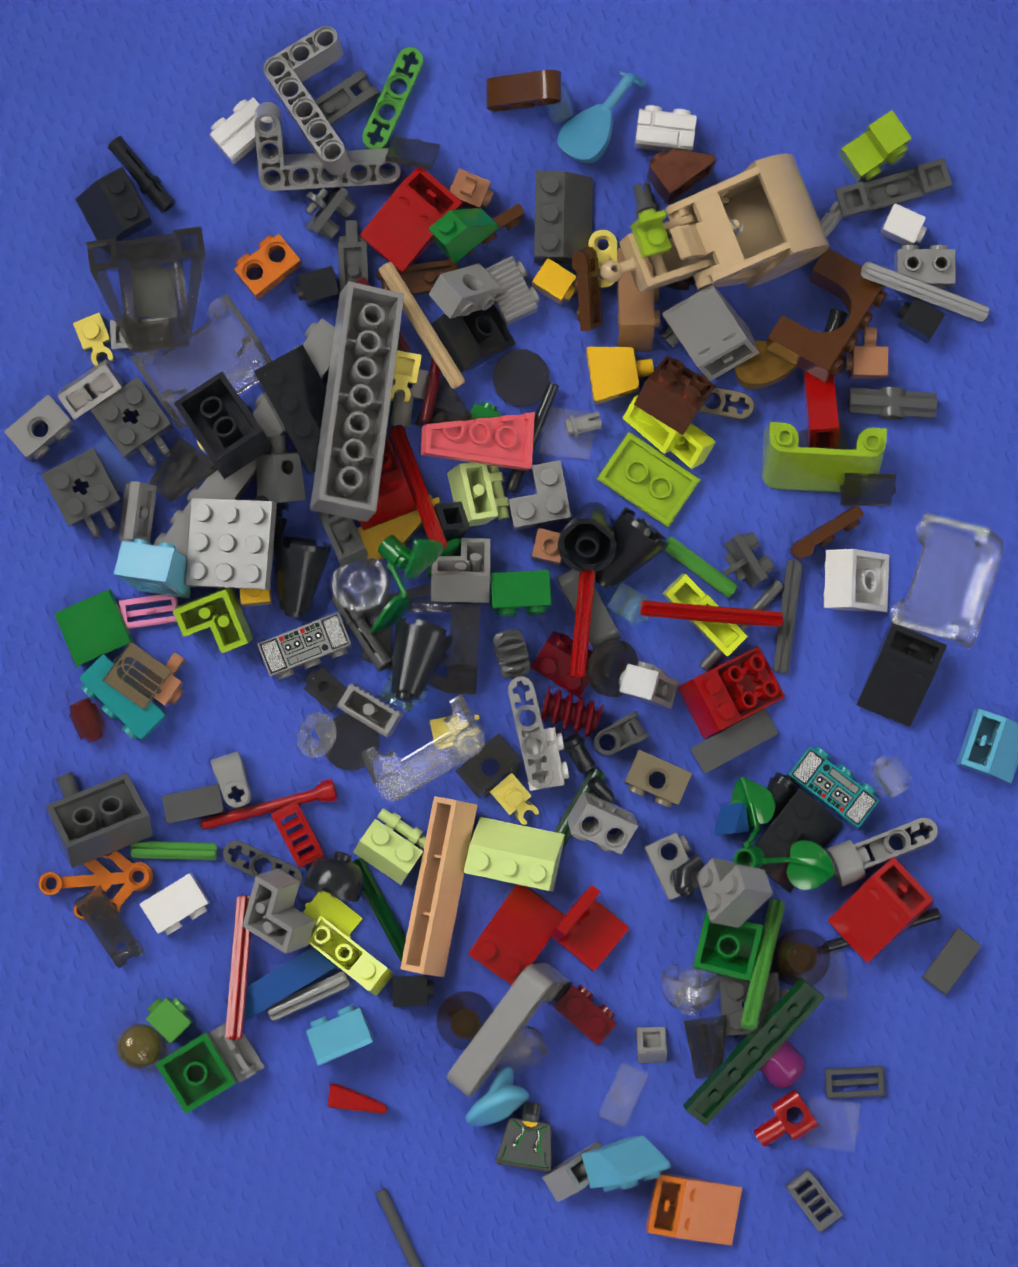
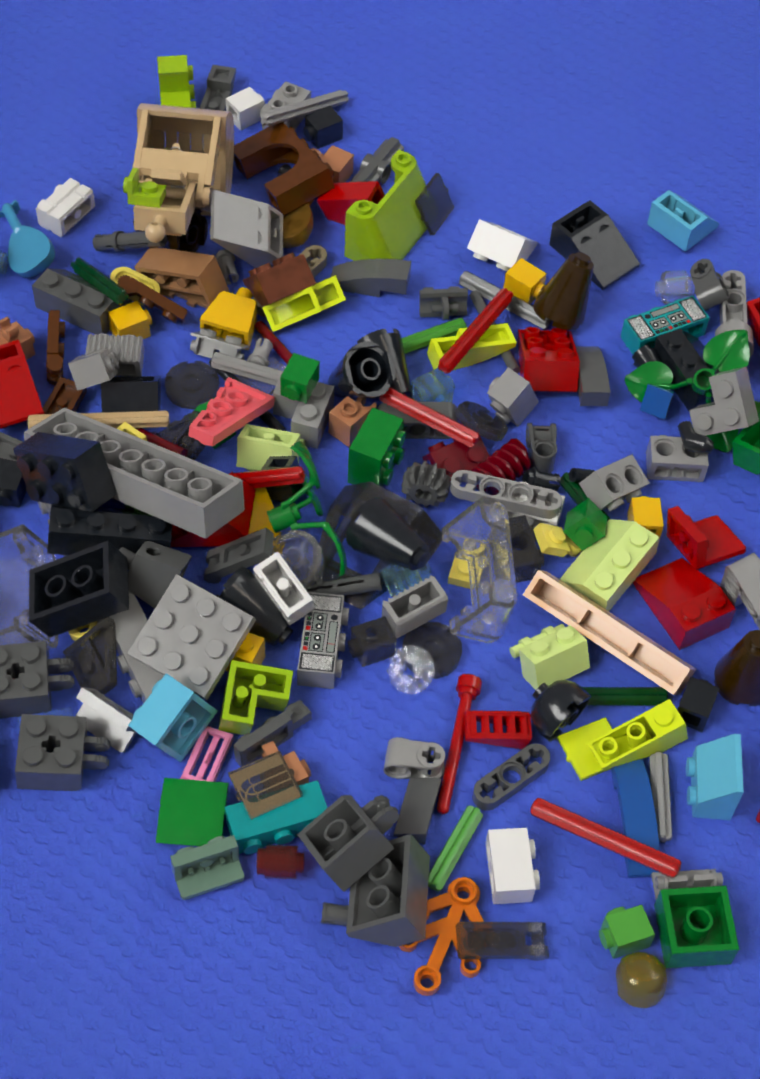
camera: 60 degrees left, 30 degrees down
(49, 669) = (207, 867): none -> sand green bracket
(122, 767) = (350, 838): none -> dark grey hinge
(198, 652) = (274, 729): none -> dark grey hinge
(272, 912) = (571, 778): light grey brick -> none
(315, 594) = (283, 588): none -> white brick
(317, 347) = (65, 471): none -> black brick
(461, 231) = (43, 354): green slope -> none
(464, 576) = (341, 477): light grey brick -> none
(542, 816) = (585, 524): none -> green brick
(547, 486) = (299, 378): none -> green brick
(557, 427) = (245, 368): none -> light grey axle
(575, 368) = (208, 343): none -> light grey hinge
(581, 226) = (99, 280): none -> dark green axle
(586, 865) = (647, 513): none -> yellow brick
(607, 437) = (278, 346): none -> dark red bar
(648, 479) = (331, 336): lime tile -> none
(675, 779) = (593, 435): dark tan brick -> none
(678, 171) = (102, 203): copper slope -> none
(740, 474) = (373, 276): none -> dark grey slope
(802, 677) = (567, 293): none -> dark brown cone
(817, 627) = (525, 281): none -> yellow brick
(825, 533) = (452, 248): reddish brown hinge -> none
(893, 813) = (708, 284): none -> dark grey piece
(950, 581) = (531, 186): clear windscreen -> none

